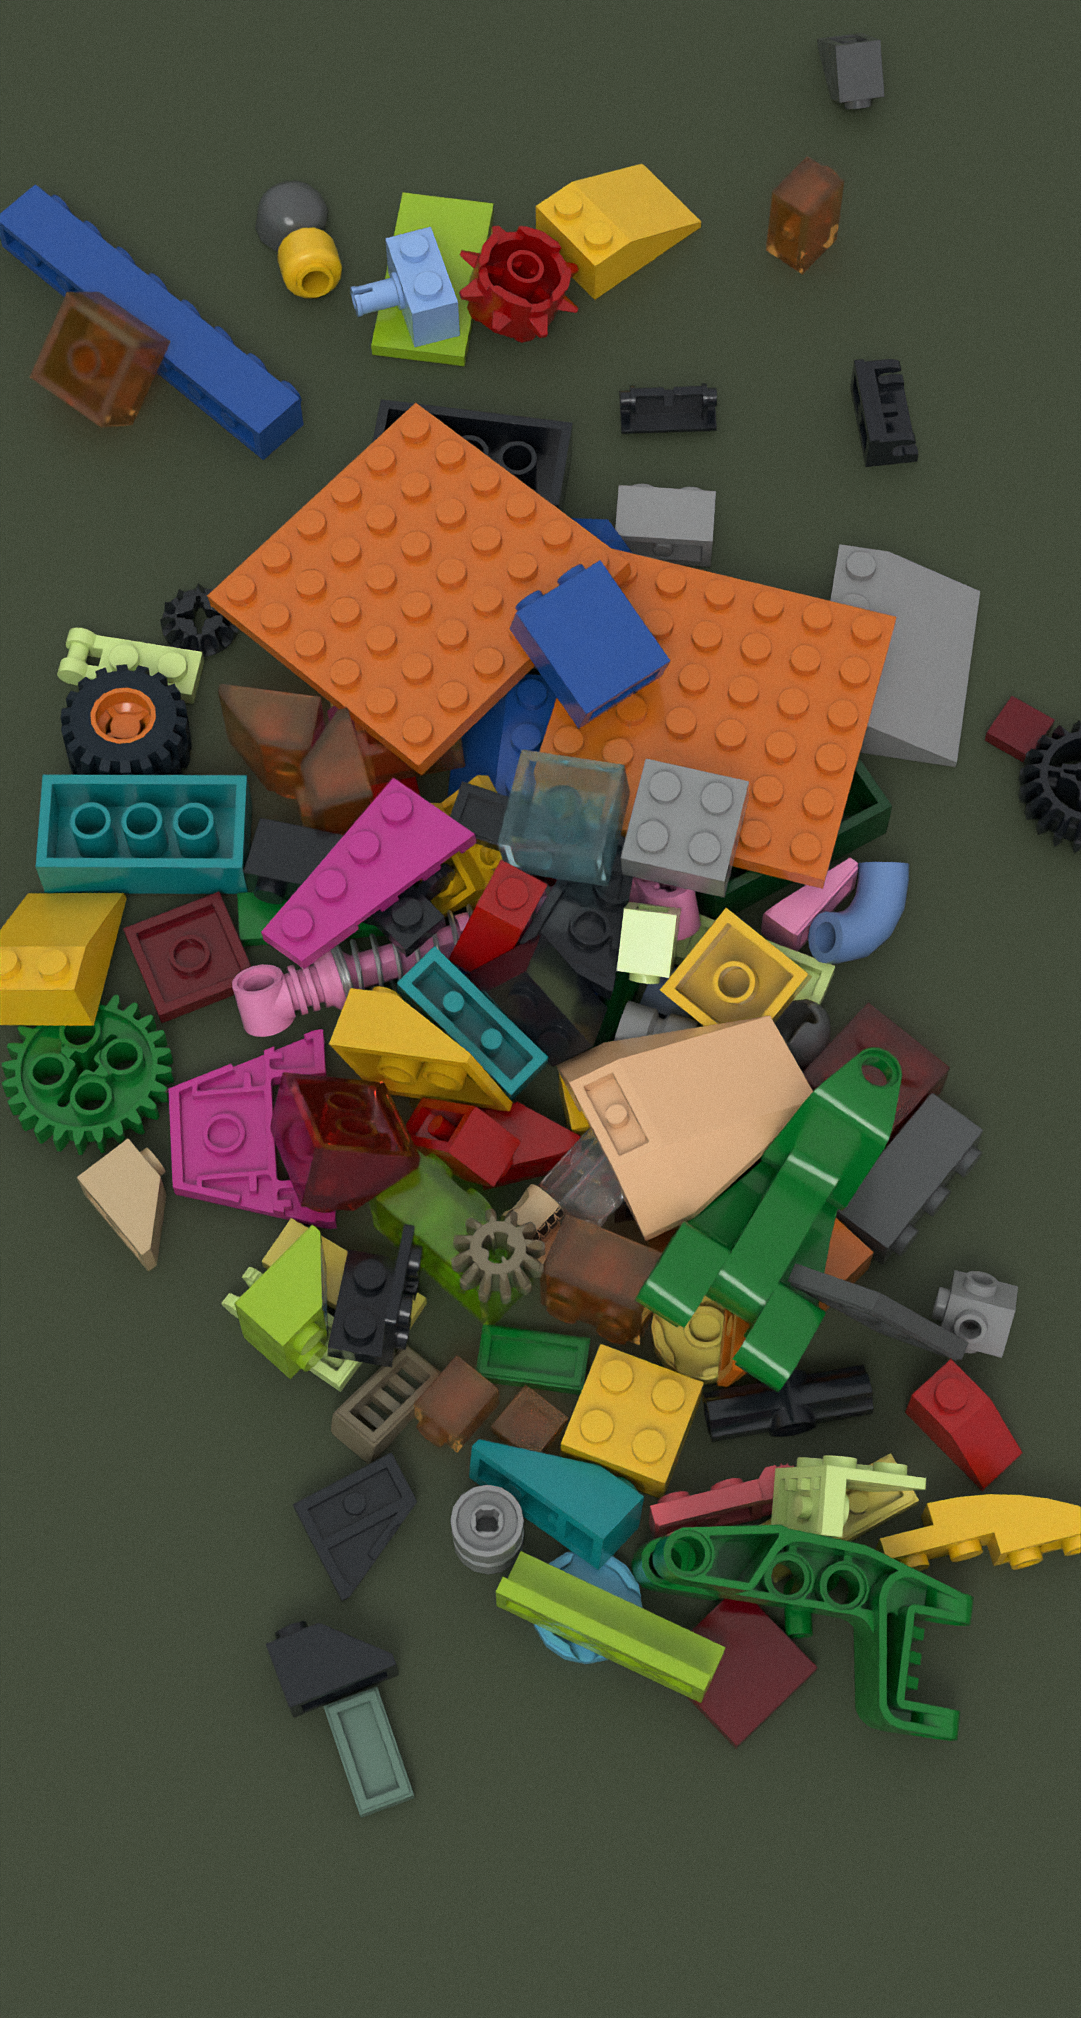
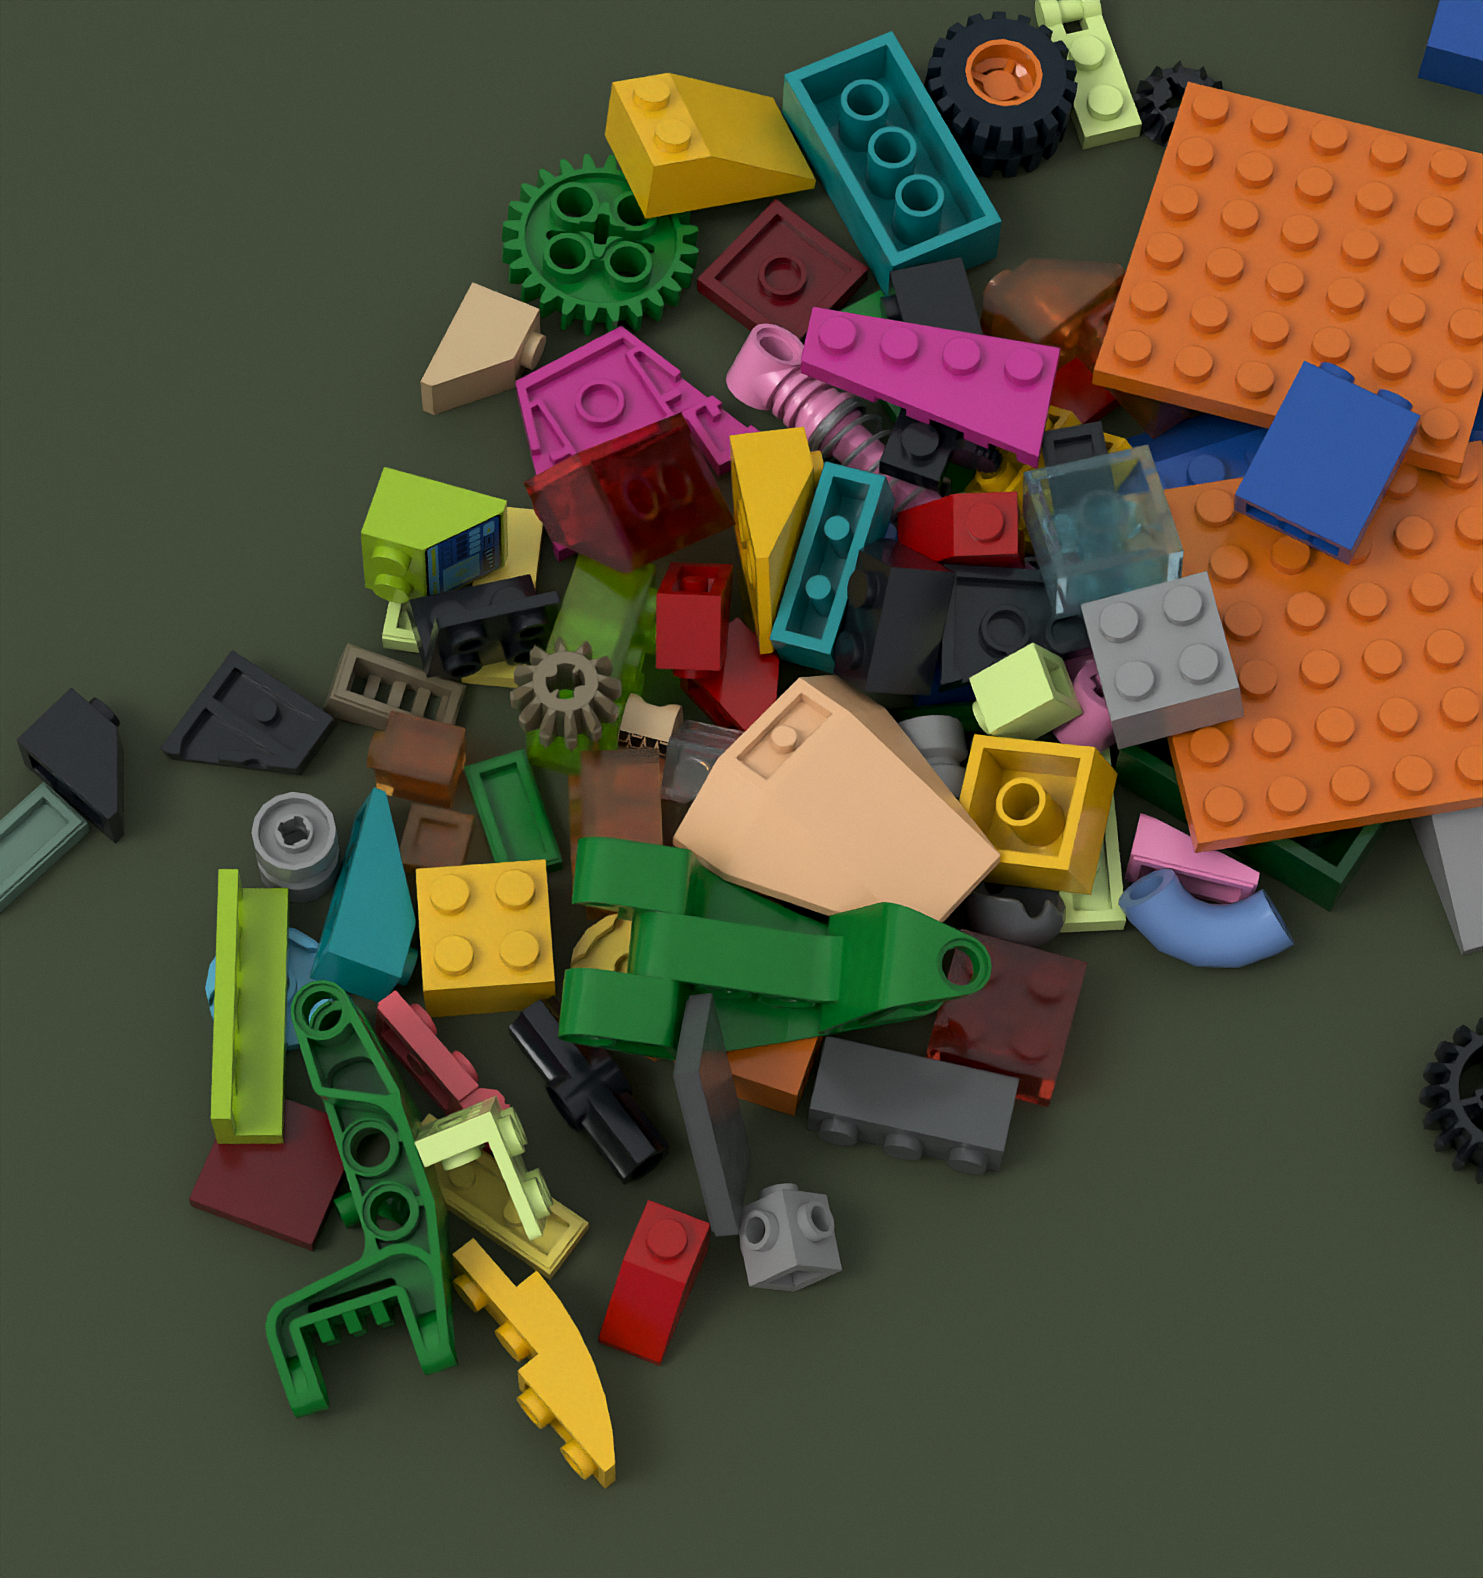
camera: 60 degrees right, 0 degrees up
(272, 732) = (1073, 214): clear orange slope -> none

